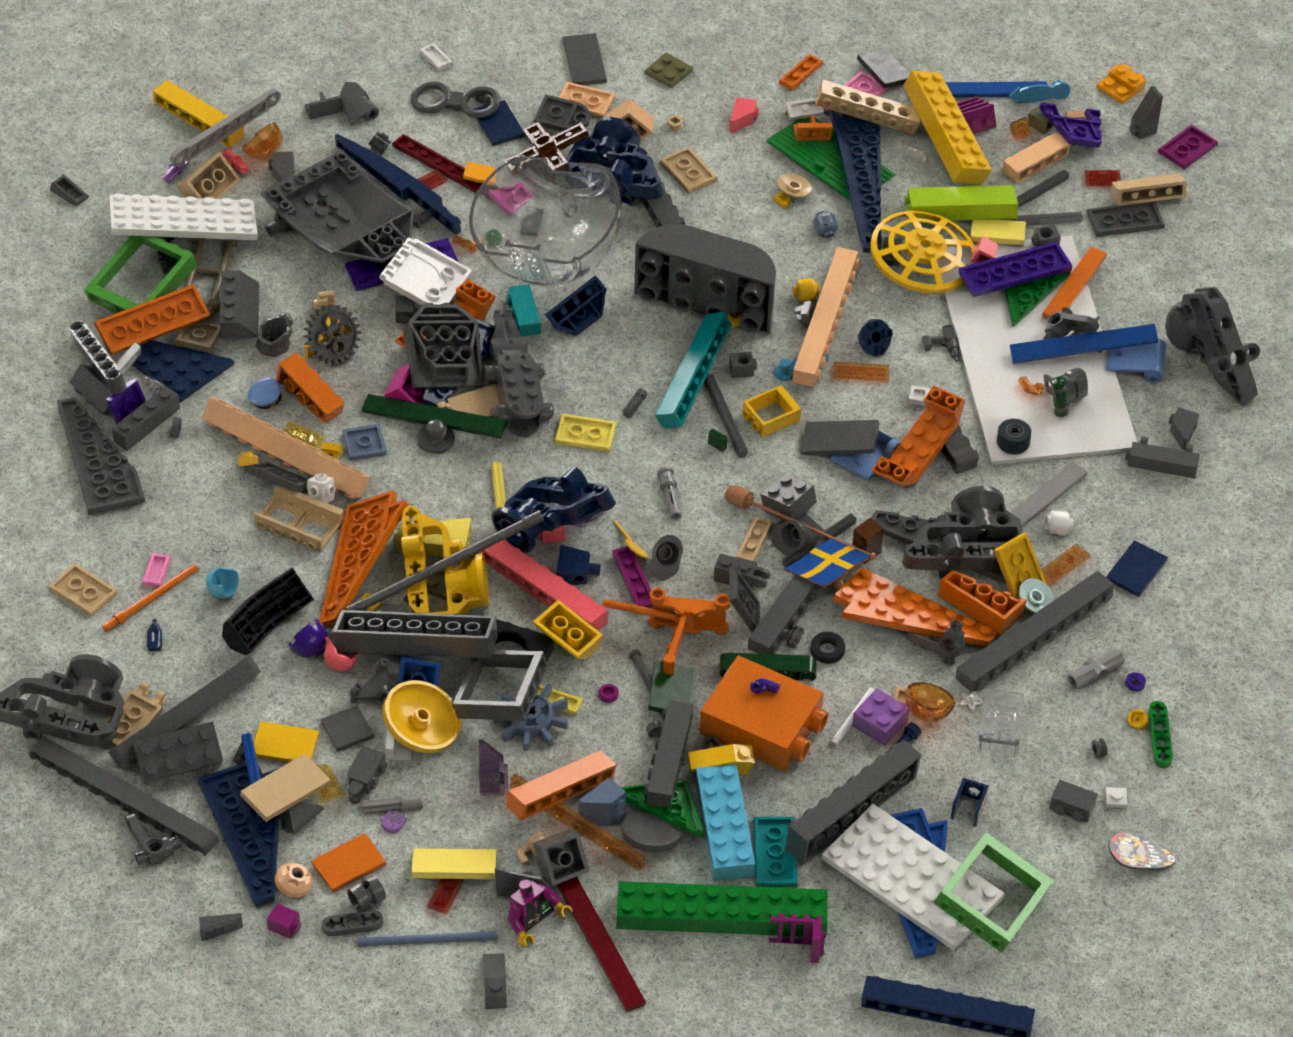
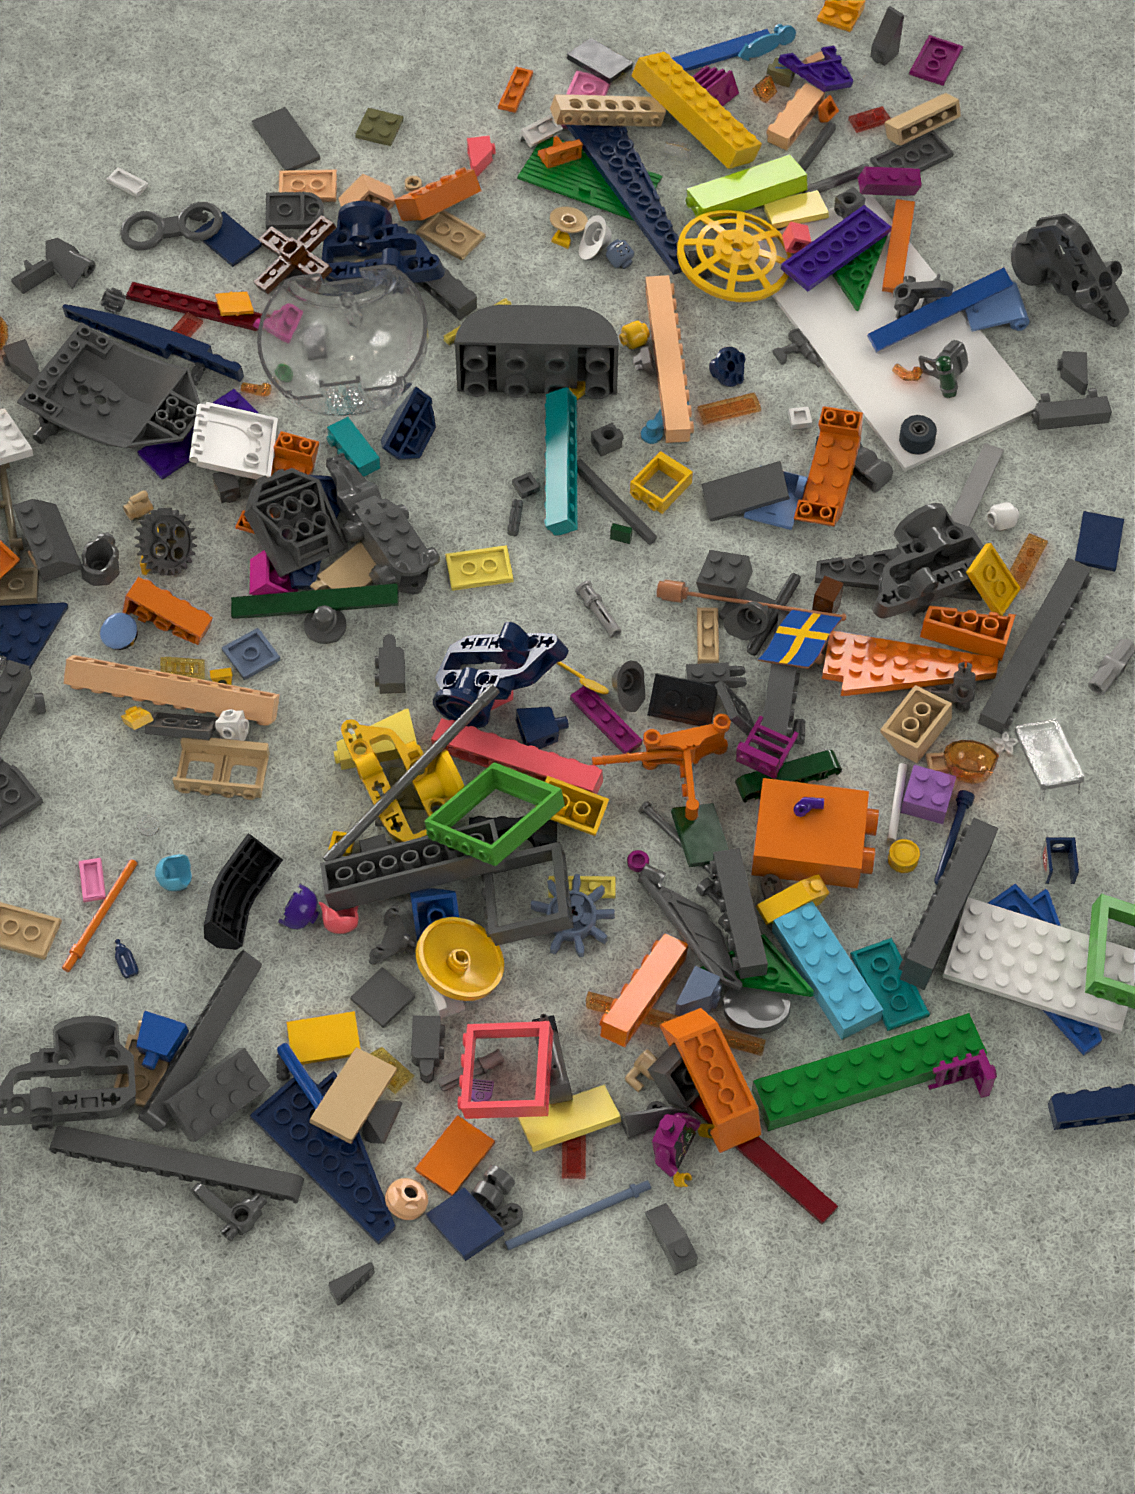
camera: 20 degrees left, 10 degrees up
(151, 698) = (159, 1038): none -> blue torso
(284, 921) = (419, 1252): magenta brick -> none
(330, 912) = (465, 1224): none -> dark blue tile
(361, 541) = (304, 771): orange wing -> none
(411, 837) = (514, 1108): none -> coral window
(466, 798) = (559, 1084): none -> dark grey piece
(473, 485) = (391, 667): none -> dark grey hinge
(492, 770) = (561, 996): clear purple slope -> none
(498, 484) = (418, 663): light yellow axle -> none
(541, 610) = (537, 792): none -> bright green window
(584, 868) = (715, 1077): none -> orange slope
(627, 752) = (693, 925): none -> dark grey wing
(655, 380) = (525, 485): none -> dark grey plate
(688, 135) = (438, 195): none -> orange wedge
(701, 578) = (682, 700): none -> black tile
(745, 644) = (760, 760): none -> magenta plate
(810, 205) = (595, 232): none -> white piece
(831, 638) = (837, 721): black tyre -> none
(836, 758) = (903, 856): none -> yellow wheel
(898, 659) = (917, 723): none -> tan slope
(1037, 590) = (1019, 602): light aqua dish -> none
(1066, 159) = (827, 110): none -> orange slope
(1091, 230) = (889, 181): none -> magenta brick

